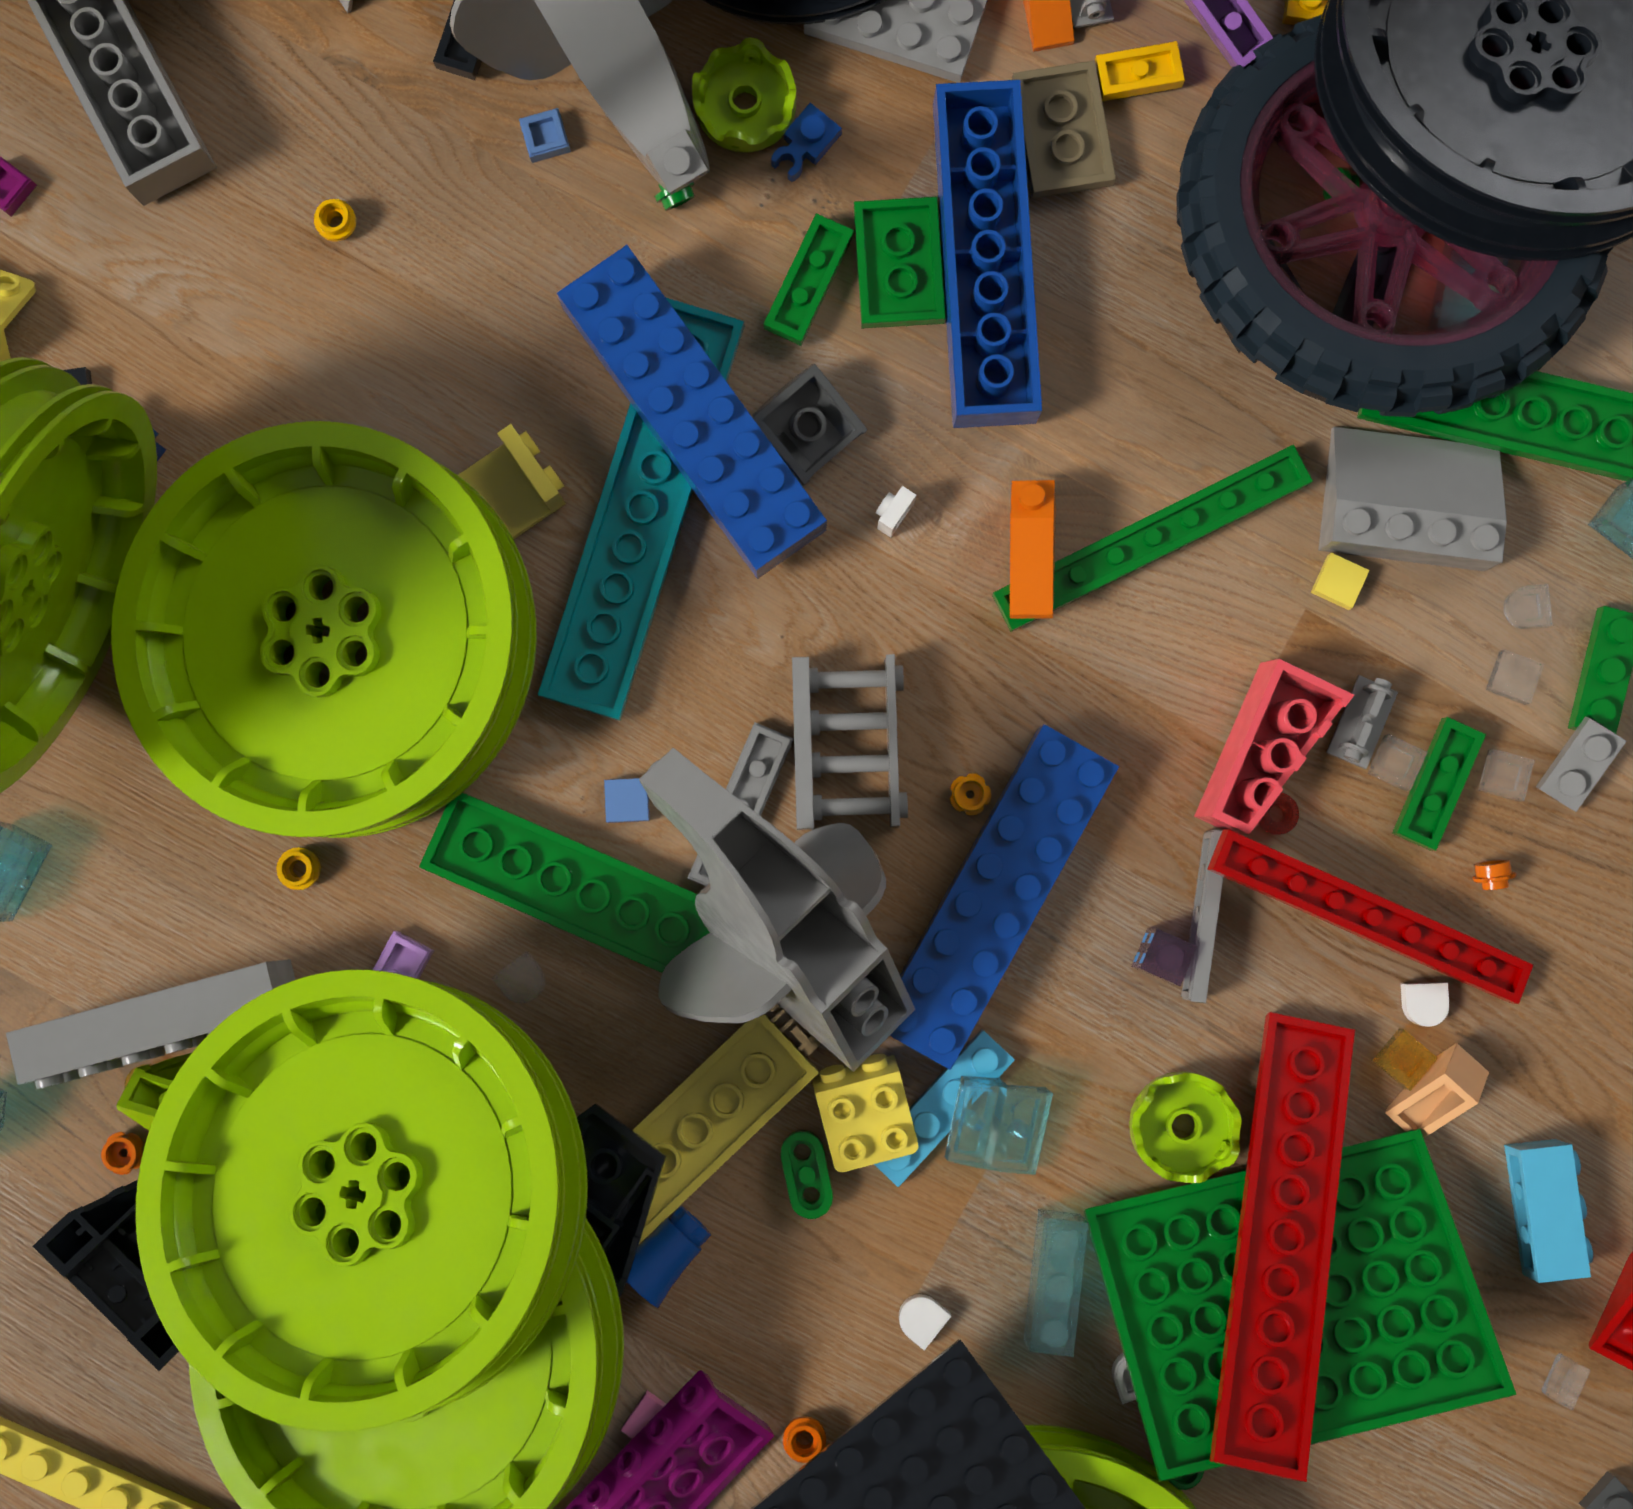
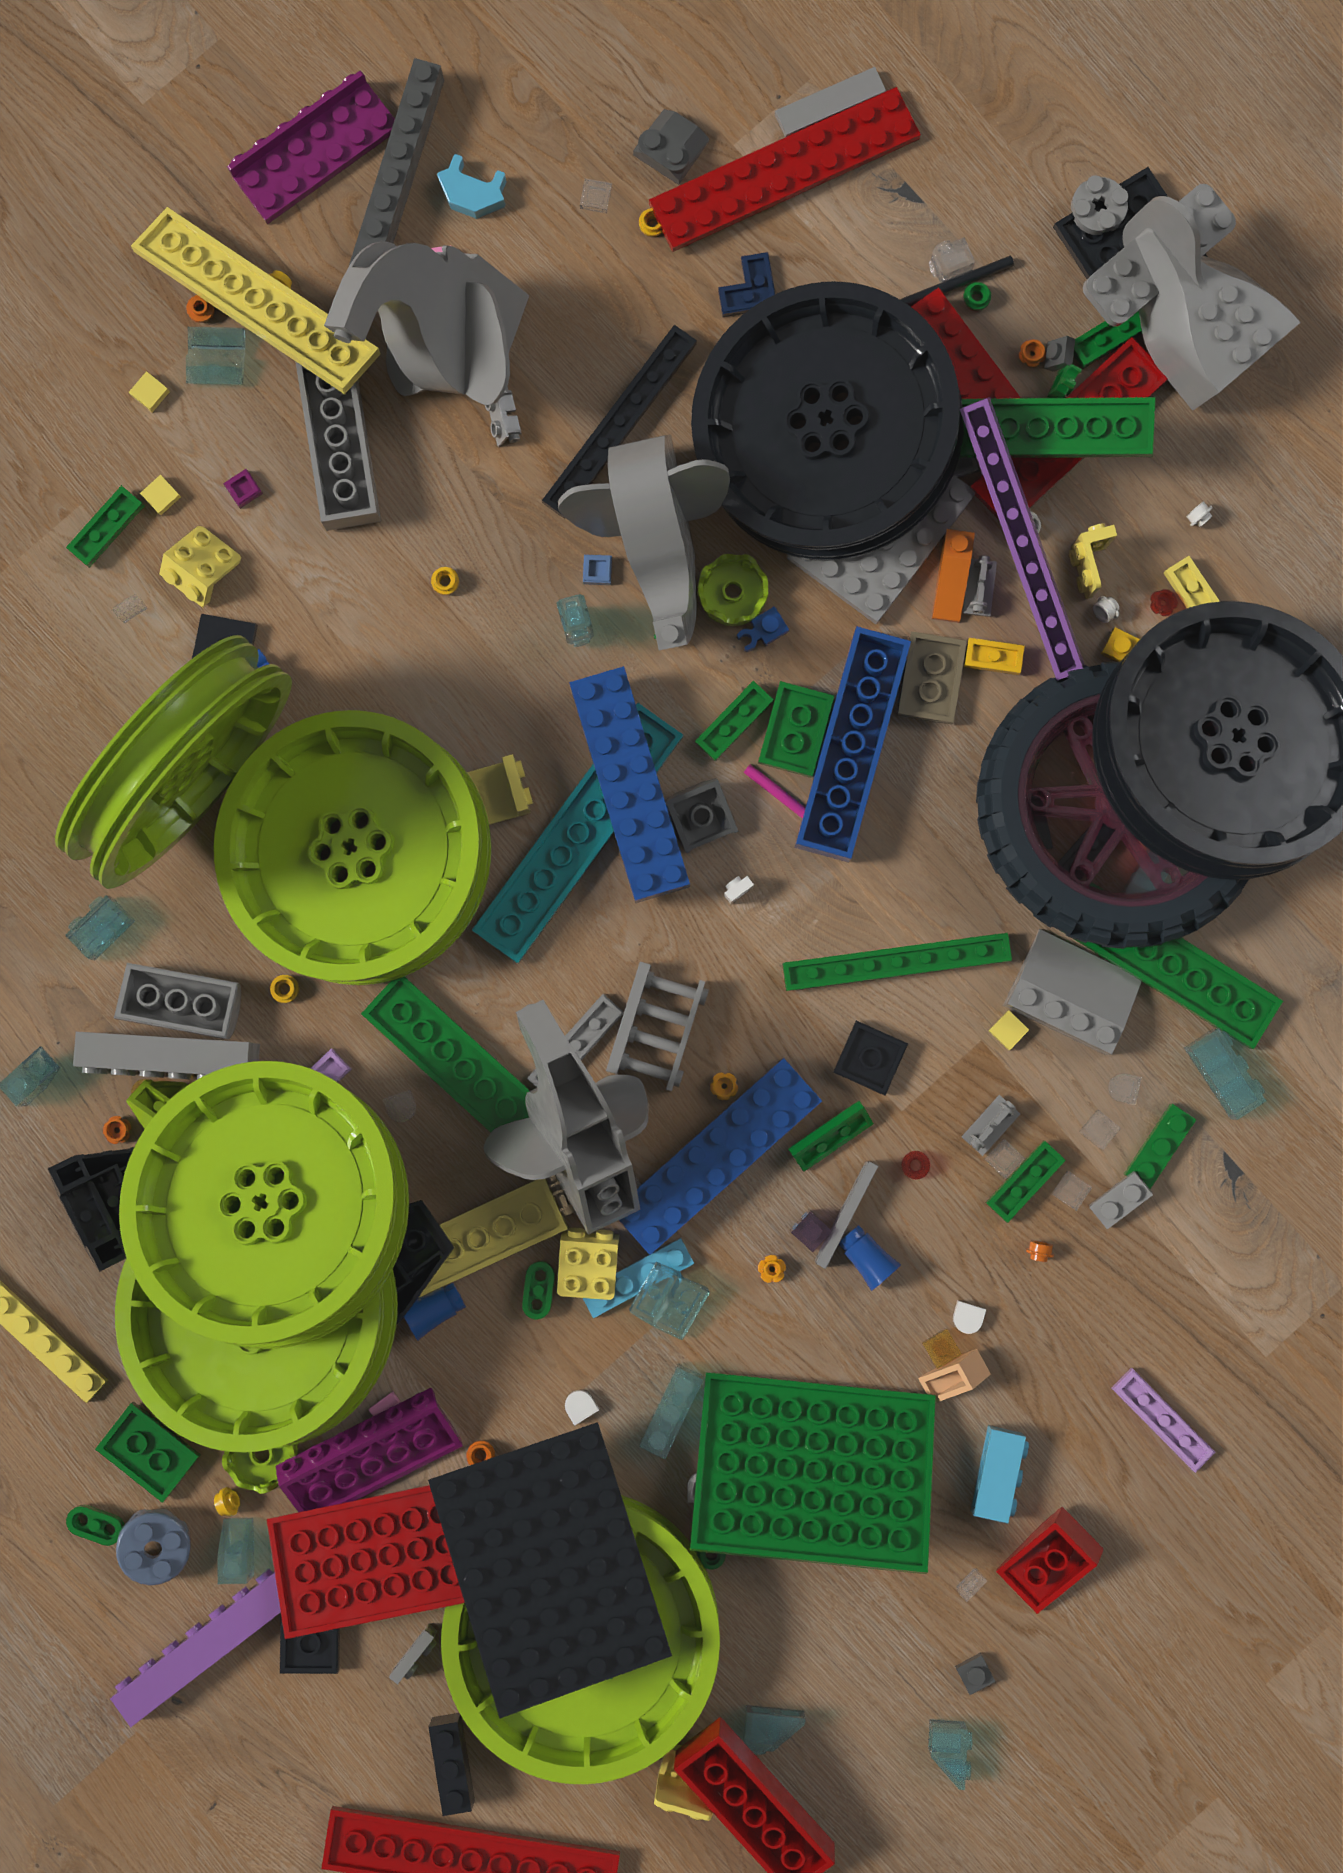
camera: 25 degrees right, 0 degrees up
(149, 937) = (179, 1001): none -> light grey brick
(536, 208) = (575, 620): none -> clear light blue brick
(626, 801) = (504, 1015): medium blue tile -> none
(898, 358) = (775, 790): none -> dark pink bar
(1032, 549) = (816, 944): orange slope -> none
(1123, 1018) = (778, 1264): none -> light orange plate
(1145, 813) = (831, 1136): none -> green plate
(1162, 684) = (870, 1058): none -> black plate
(1215, 1133) = (789, 1363): lime plate -> none
(1259, 966) = (868, 1257): none -> blue plant
(1268, 742) = (923, 1119): coral wedge -> none
(1283, 1249) = (819, 1433): red plate -> none
(1370, 916) = (949, 1250): red plate -> none

